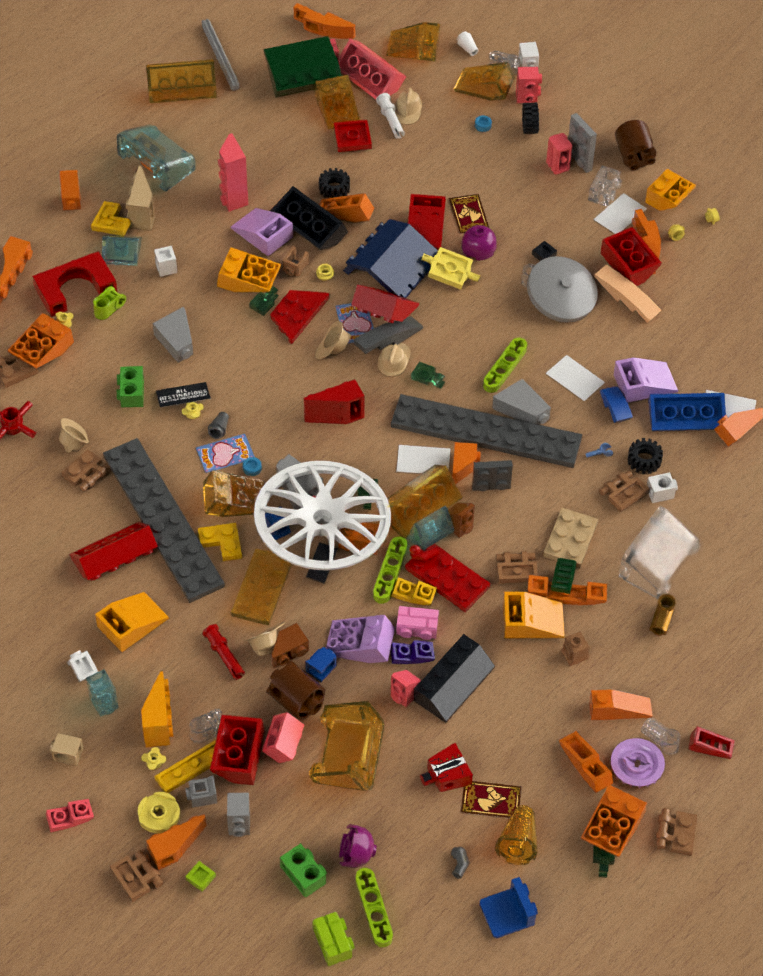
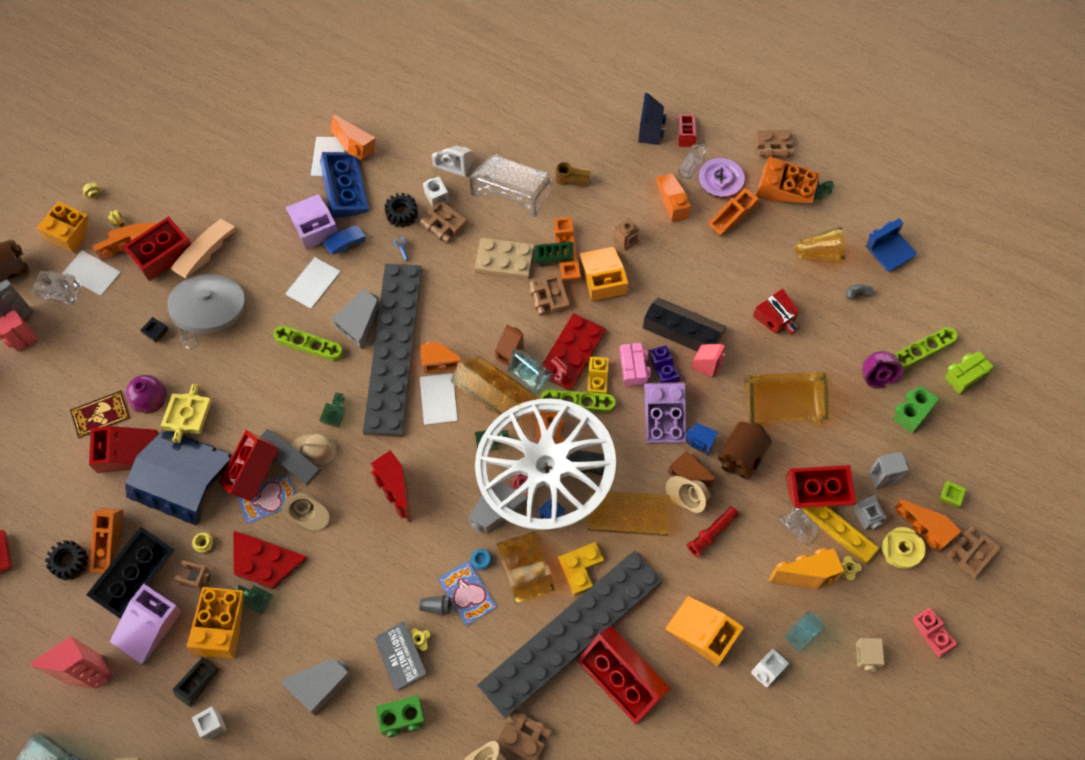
camera: 100 degrees left, 10 degrees up
(206, 252) = (200, 685): none -> pearl dark grey slope
(283, 737) = (795, 452): coral brick -> none
(490, 799) = (789, 275): sticker -> none
(492, 475) = (457, 324): dark grey plate -> none
(699, 509) = (454, 160): none -> white slope
(722, 700) = (651, 121): none -> dark blue slope

